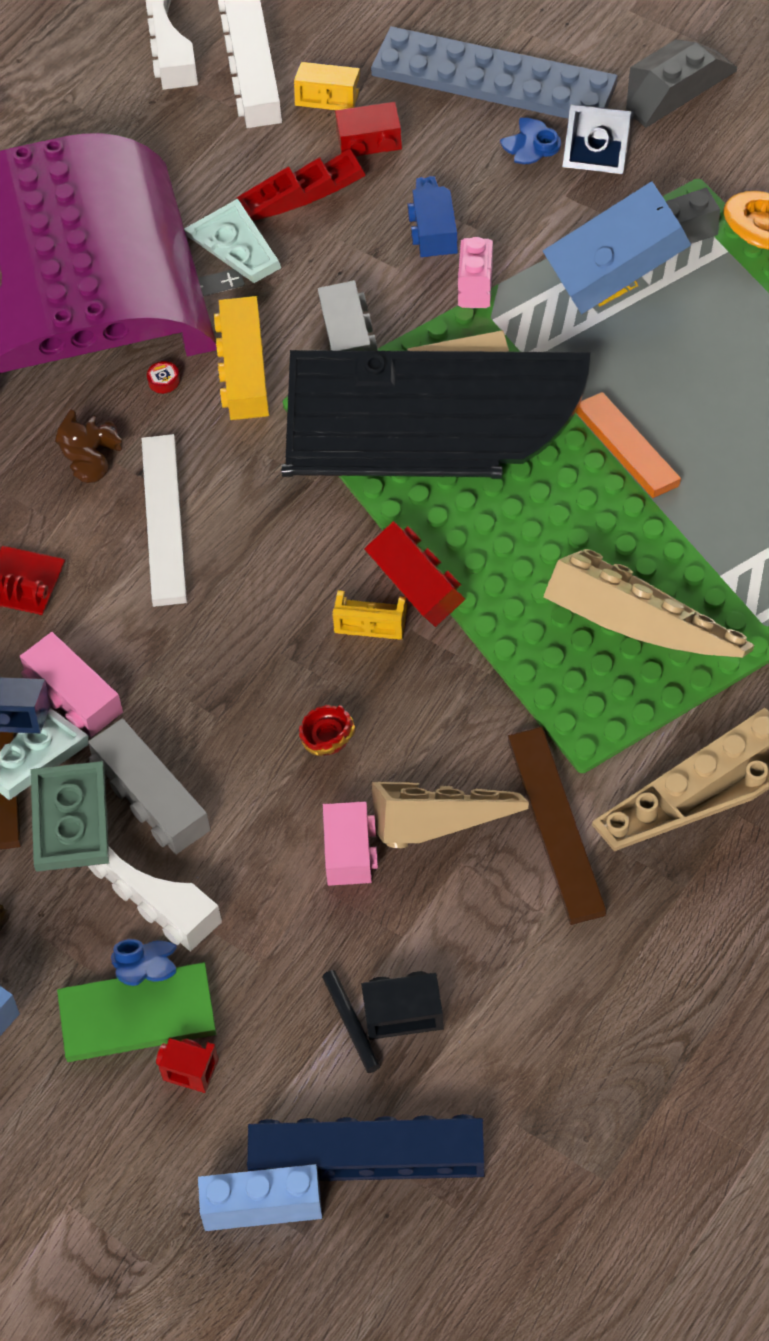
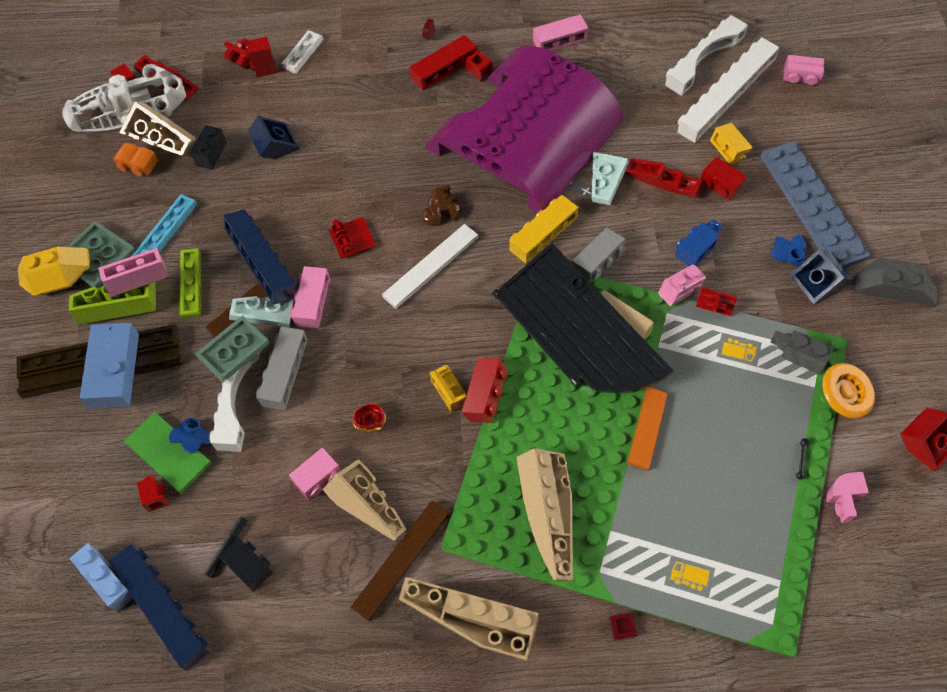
camera: 50 degrees right, 5 degrees up
(163, 377) = (506, 206): tile -> none
(527, 257) = (716, 301): none -> red hips
(617, 247) = (753, 334): medium blue brick -> none

